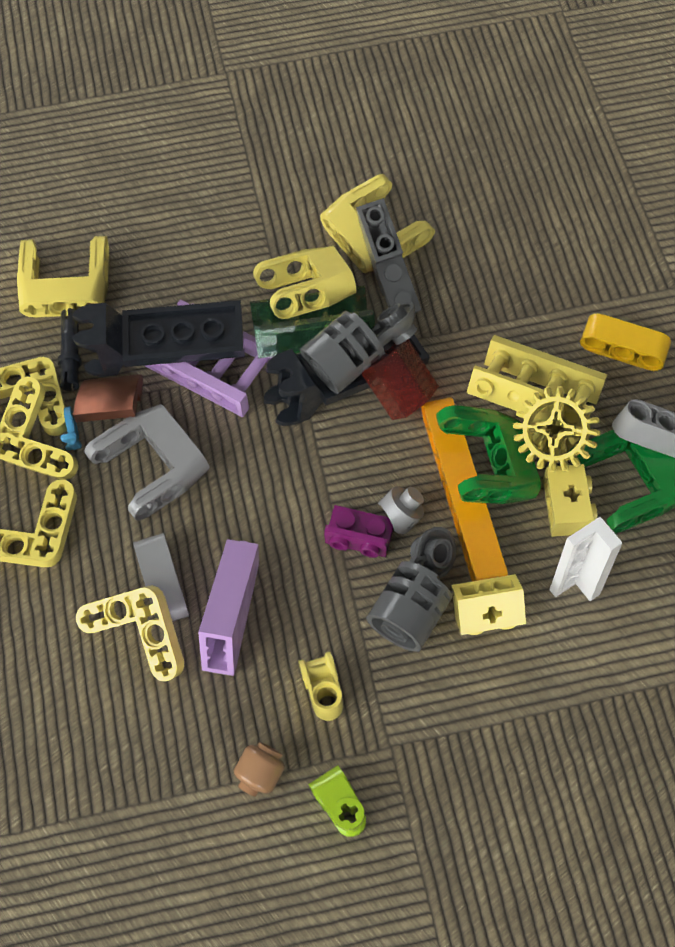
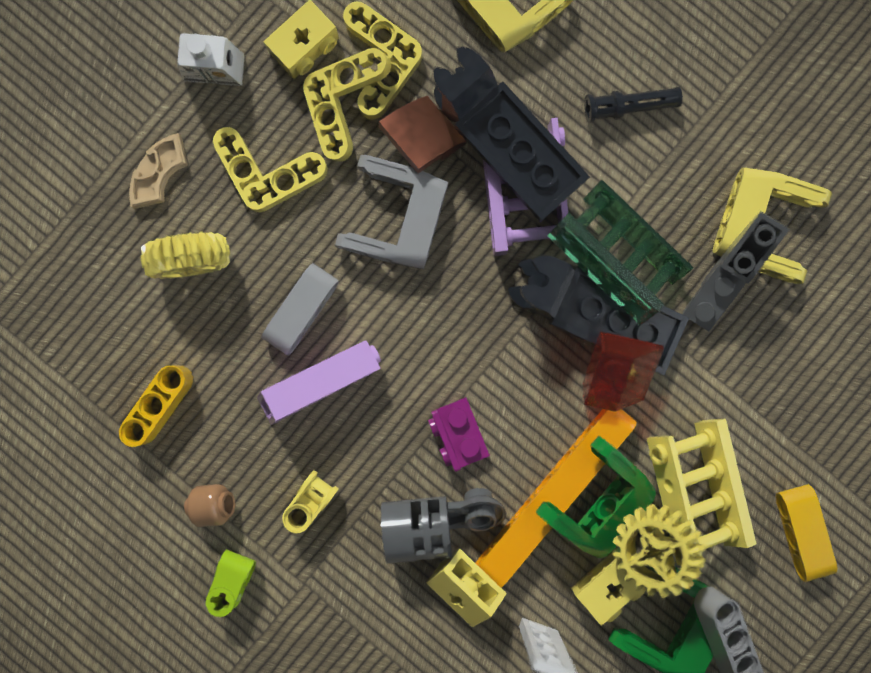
camera: 50 degrees right, 25 degrees up
(41, 628) = (185, 255): none -> light yellow gear
(69, 358) = (444, 58): black pin -> none
(72, 436) = (371, 129): dark azure piece -> none
(139, 612) = (260, 322): light yellow beam -> none
(145, 766) = (143, 413): none -> yellow beam
(207, 262) = (617, 107): none -> black pin
(329, 276) = (683, 227): light yellow connector -> none
(350, 346) = (604, 318): dark grey cylinder -> none
(403, 508) = (502, 456): light grey piece -> none

